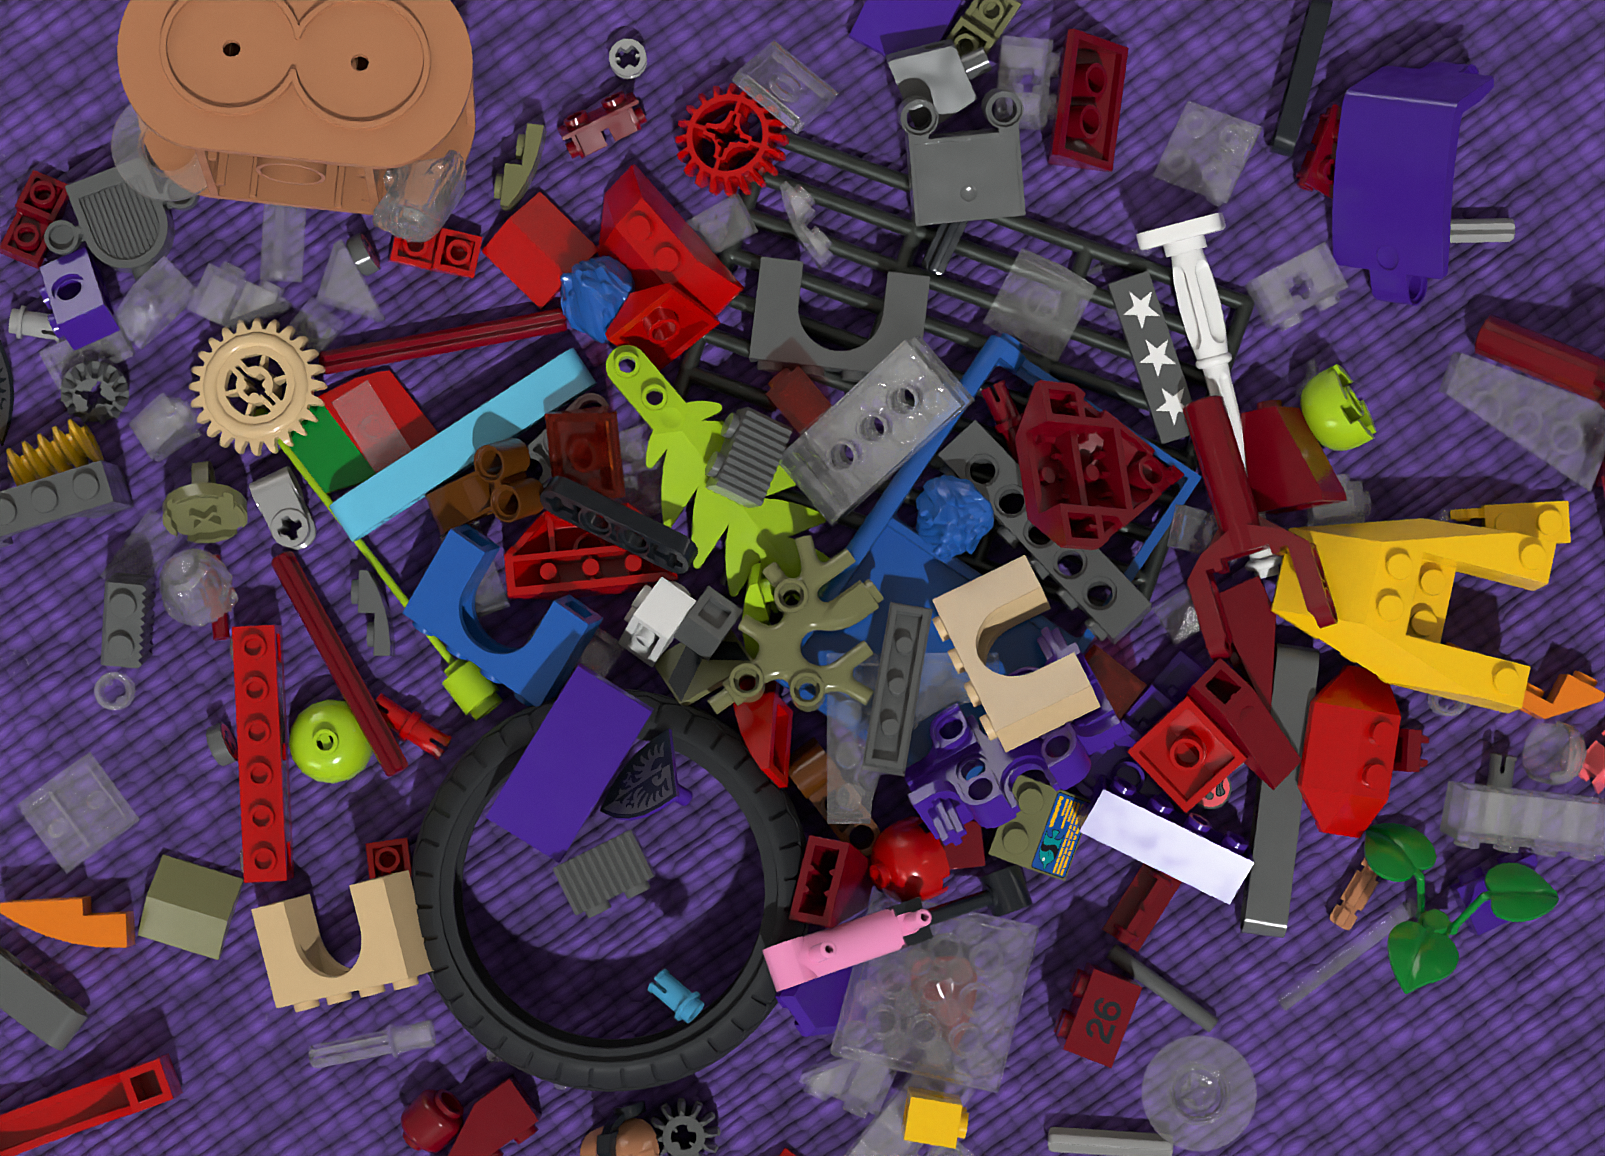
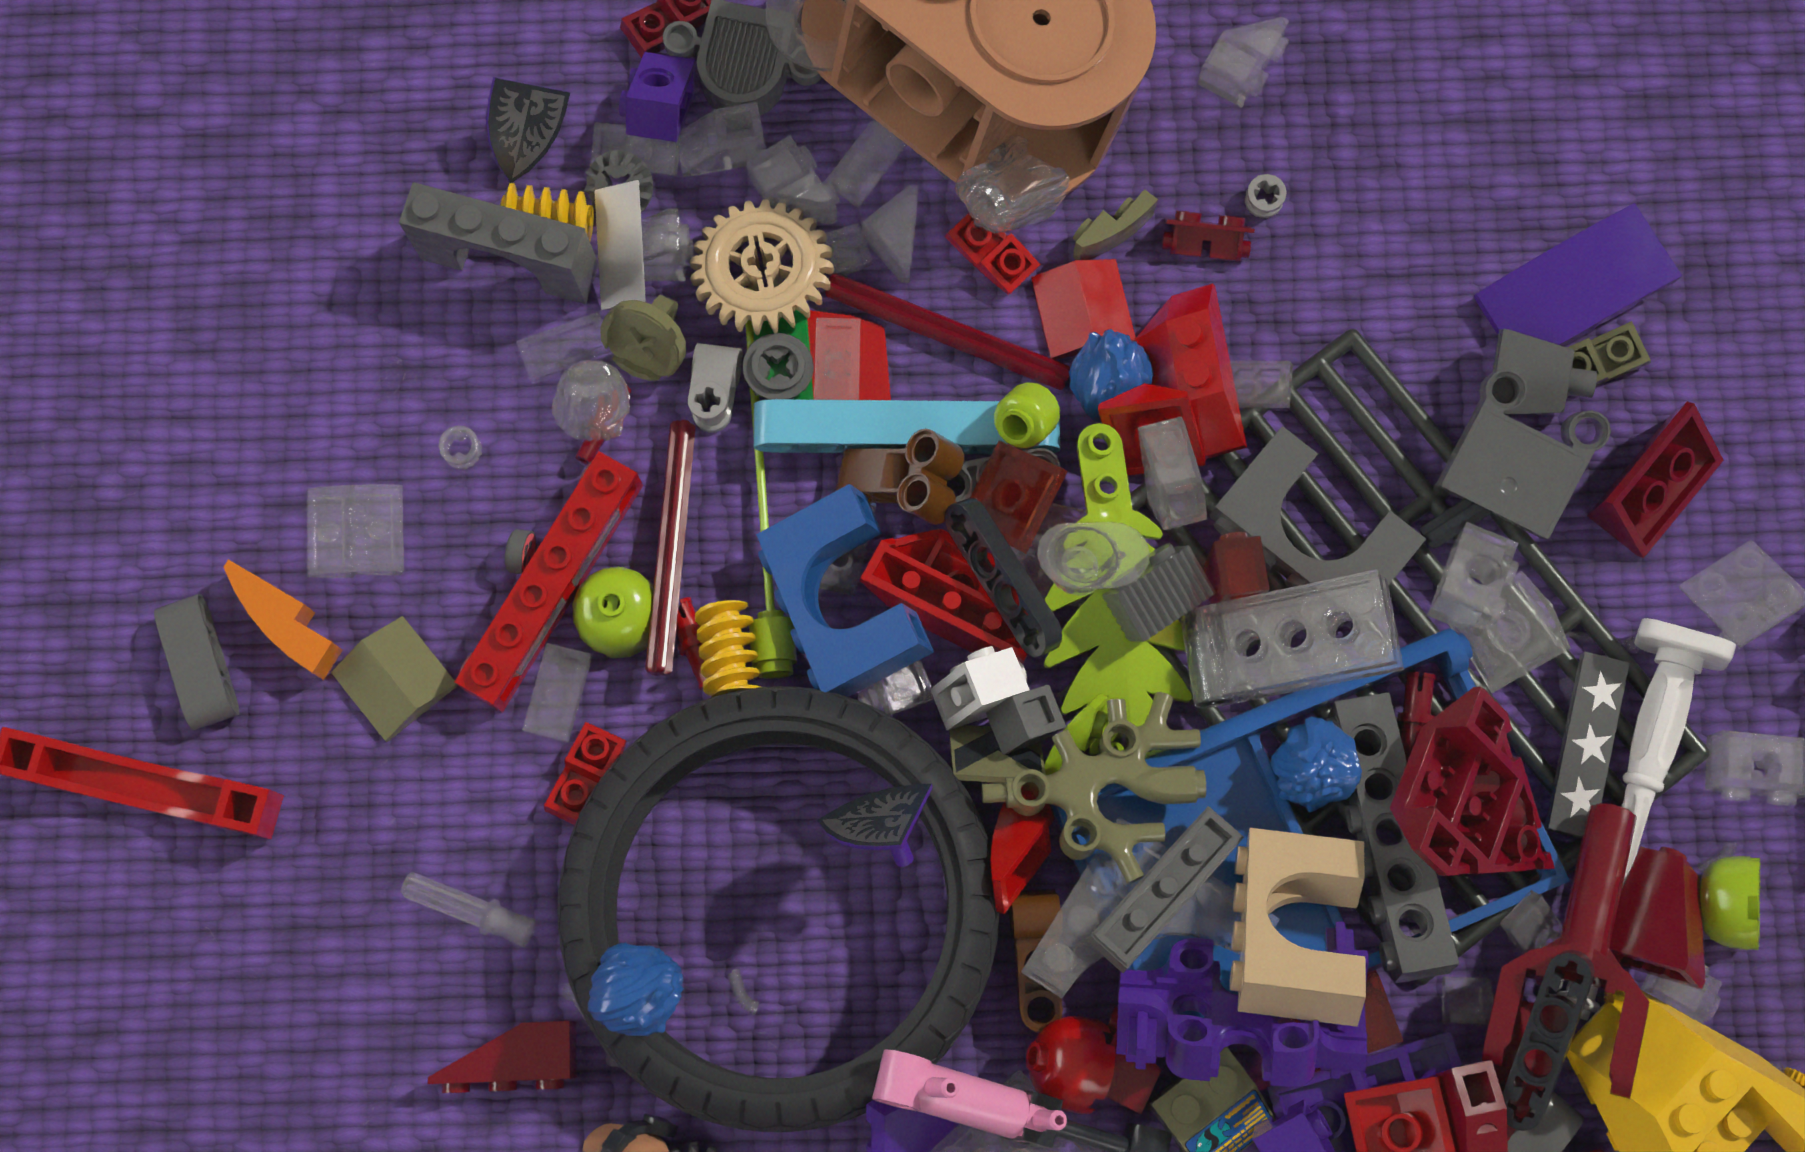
camera: 35 degrees right, 10 degrees down
(30, 324) = (604, 96): light grey pin -> none
(127, 620) = (513, 390): dark grey brick -> none
(132, 446) = (619, 244): none -> white sticker
(304, 970) = (539, 826): tan arch -> none
(315, 447) = (776, 348): none -> dark grey gear
(328, 835) = (557, 693): none -> clear plate
(363, 254) = (927, 214): dark grey tile -> none
(372, 600) = (735, 511): dark grey slope -> none
(432, 1120) = (473, 1014): dark red head -> none
(439, 719) = (724, 647): none -> yellow piece
(547, 1028) = (635, 989): none -> blue hair
(554, 380) = (1026, 415): none -> lime head
(569, 763) = (819, 755): dark purple slope -> none
(605, 873) = (784, 879): dark grey brick -> none
(624, 976) = (739, 990): none -> clear leg
(676, 996) = (775, 1041): dark azure pin -> none
(678, 465) = (1092, 556): none -> clear piece
(698, 353) = (1171, 474): none -> clear slope
(699, 127) = (1315, 330): red gear -> none
(785, 87) = (1393, 298): clear tile -> none
(799, 213) = (1337, 415): clear slope -> none
(831, 883) = (988, 1031): dark red slope -> none
(988, 308) = (1461, 599): none -> clear brick
(1027, 57) = (1632, 414): clear brick -> none
(1252, 616) = (1552, 1042): none -> black beam

